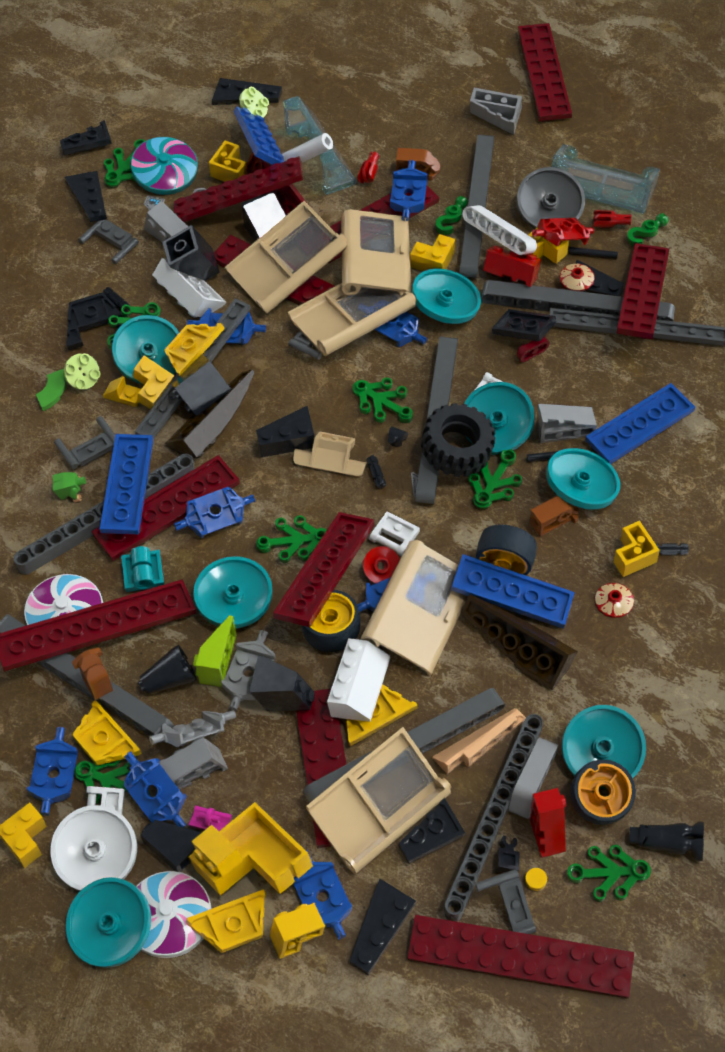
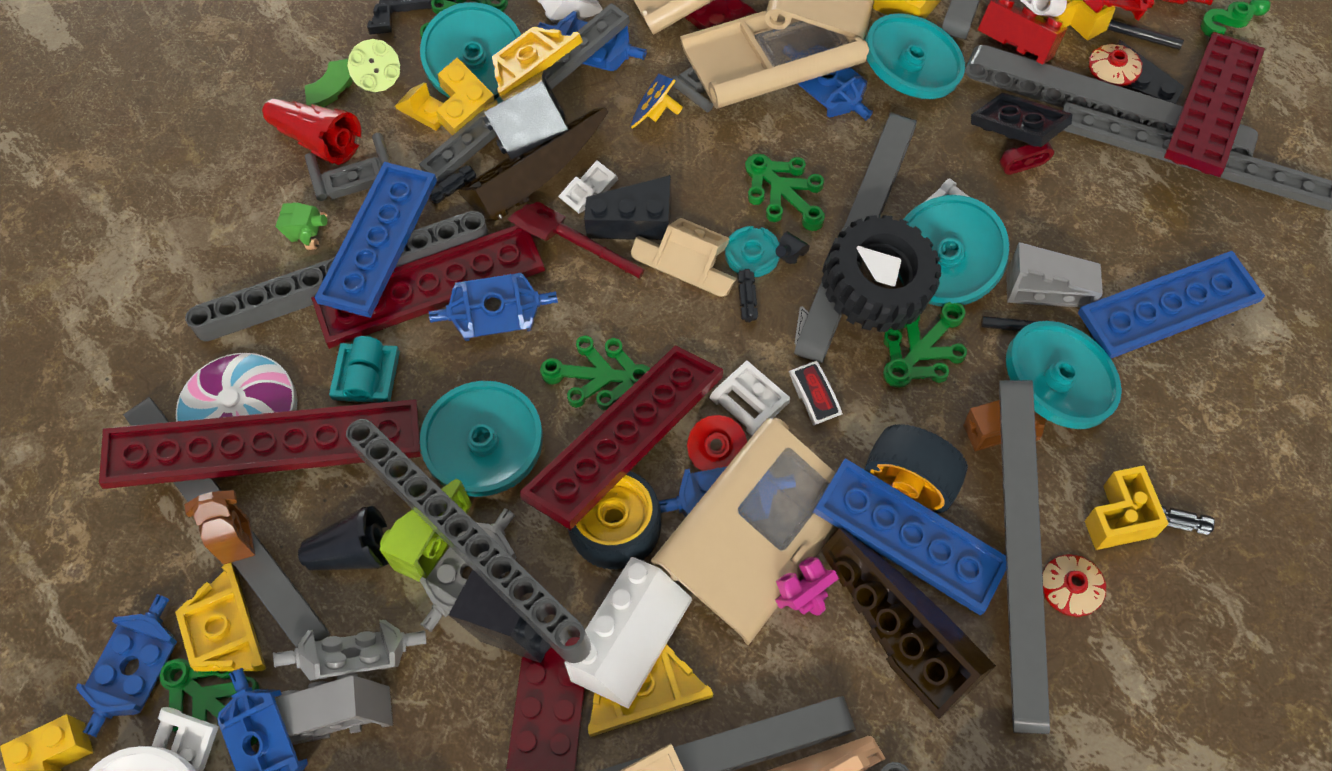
camera: 15 degrees right, 5 degrees up
(54, 421) = (320, 129): none -> red cone
(162, 438) = (452, 184): none -> black axle
(233, 453) = (546, 222): none -> dark red piece
(234, 637) = (372, 447): none -> dark grey beam
(256, 419) = (594, 181): none -> white slope
(282, 357) = (656, 101): none -> shield
(371, 442) = (757, 256): none -> teal tile
(434, 521) = (816, 392): none -> slope
(457, 638) = (809, 592): none -> dark pink hips
(459, 435) = (882, 266): none -> white sticker
(580, 586) = (1023, 559): none -> dark grey beam

